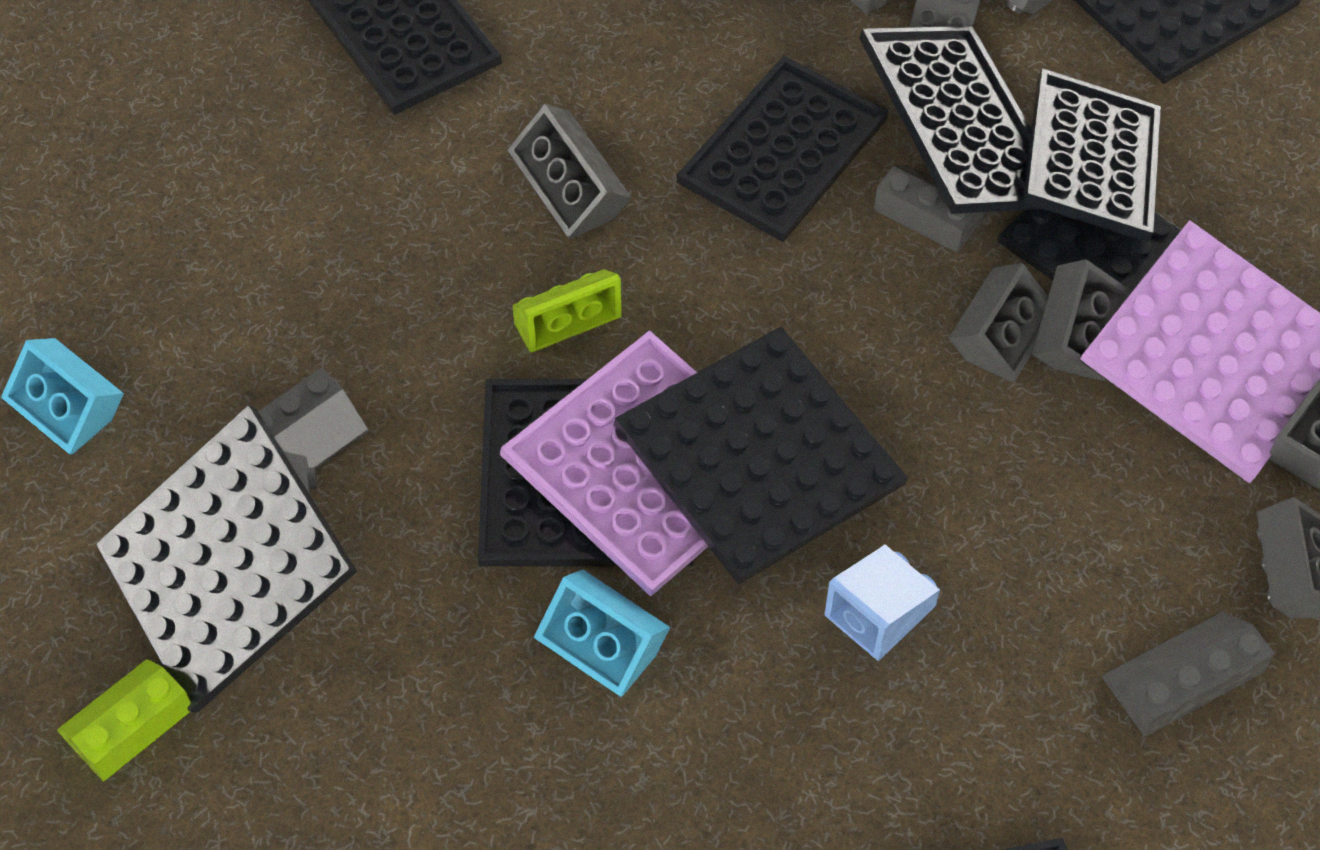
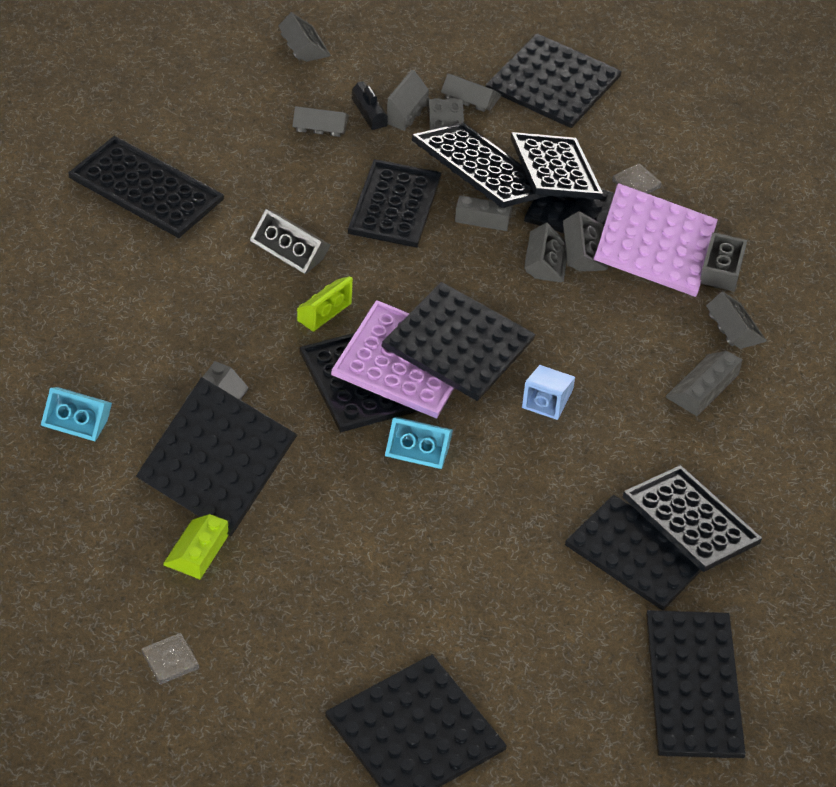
camera: 25 degrees left, 10 degrees down
(1236, 219) = (638, 178): none -> clear plate

